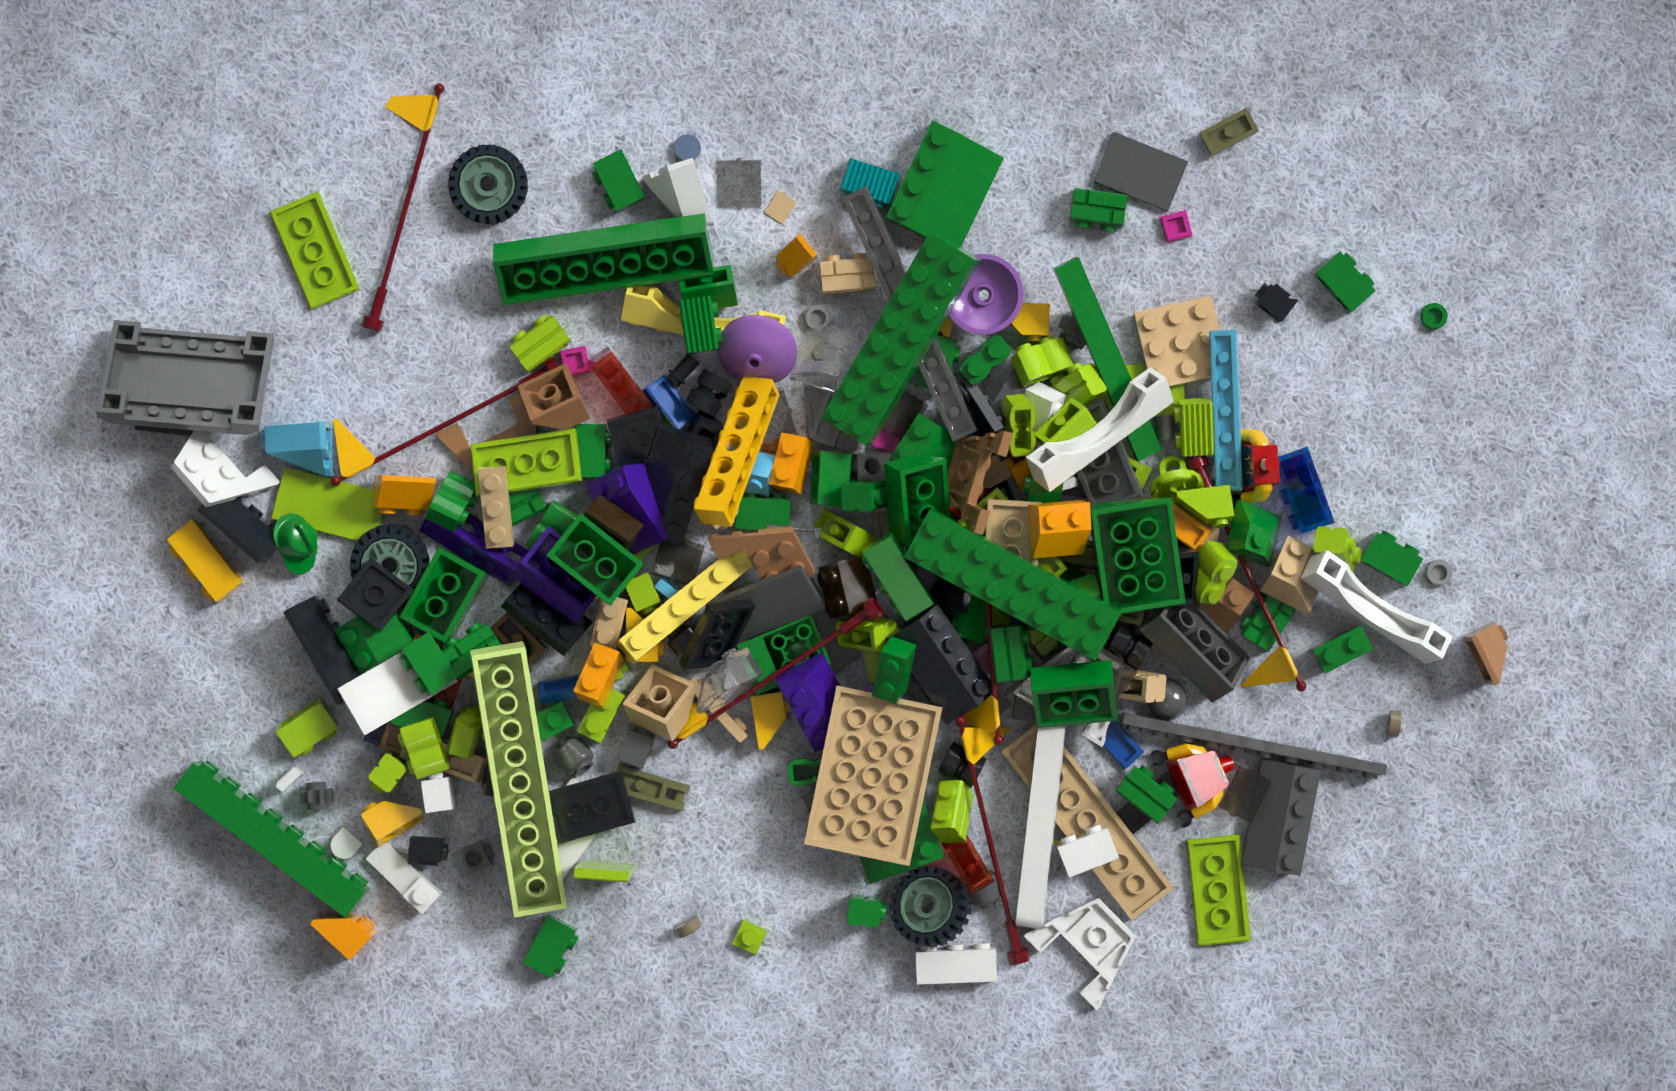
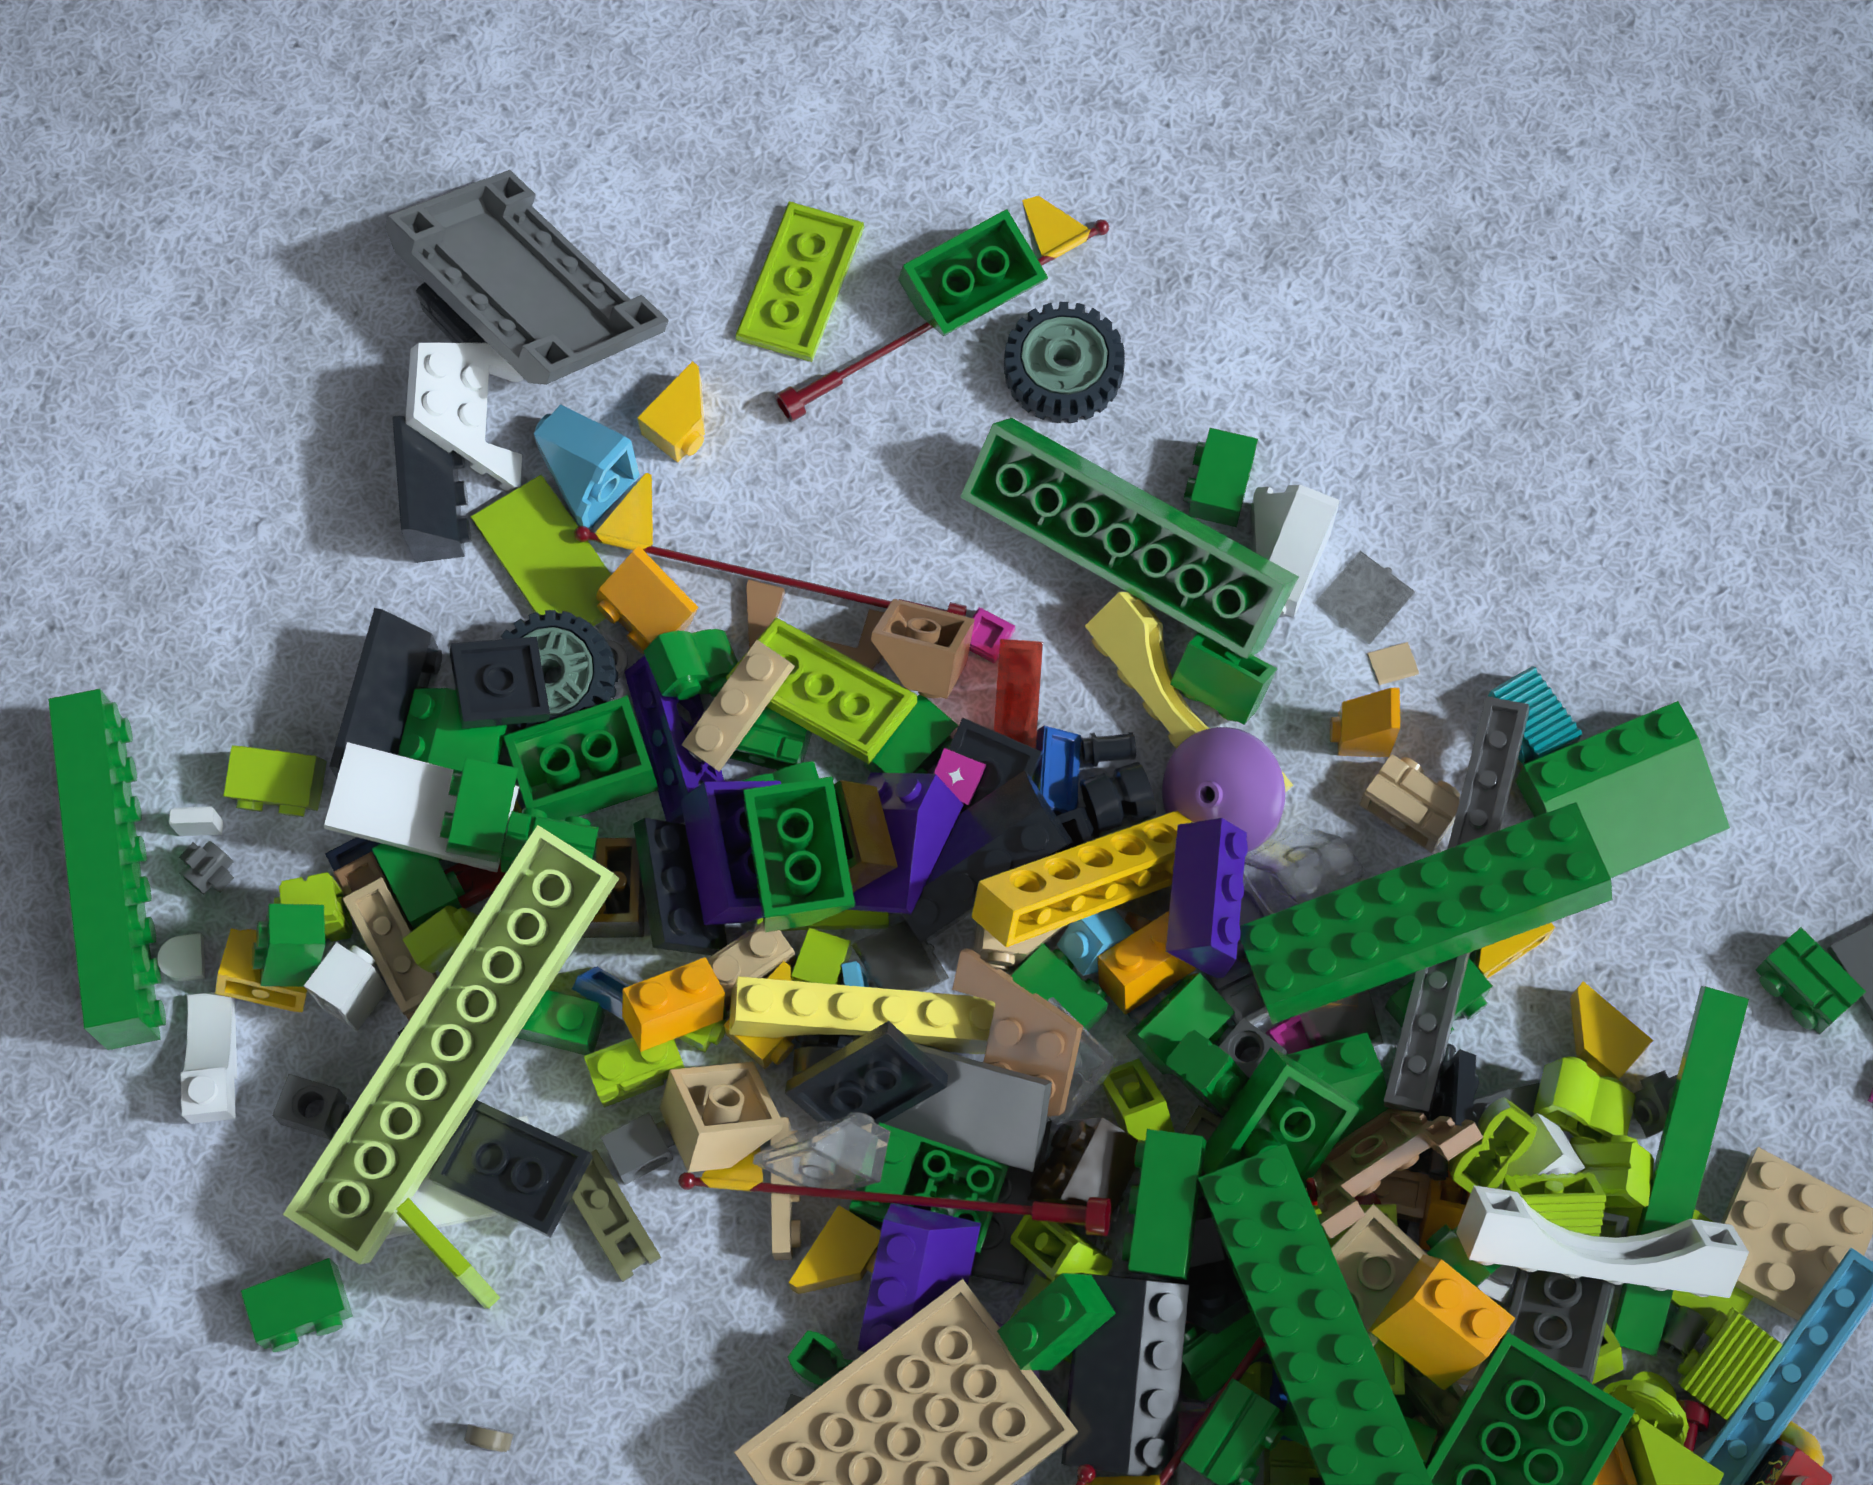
camera: 35 degrees right, 20 degrees down
(204, 561) = (349, 499): yellow brick -> none
(296, 542) = (469, 562): green piece -> none
(324, 379) = (677, 416): none -> yellow slope
(347, 933) = (70, 1061): light orange slope -> none
(401, 800) = (289, 944): none -> green brick
(403, 178) = (971, 274): none -> green slope
(424, 748) = (381, 908): lime brick -> none
(427, 850) = (266, 1048): black window -> none
(540, 342) = (964, 577): lime brick -> none
(574, 756) = (552, 1090): dark grey head -> none
(629, 451) = (959, 774): none -> dark pink tile
(687, 147) = (1347, 508): sand blue tile -> none
(699, 324) = (1178, 697): green brick -> none
(795, 415) = (1207, 895): none -> dark purple slope
(817, 317) = (1331, 819): light grey tile -> none
(991, 355) = (1518, 1045): green brick -> none
(1003, 302) = (1609, 956): medium lavender dish -> none

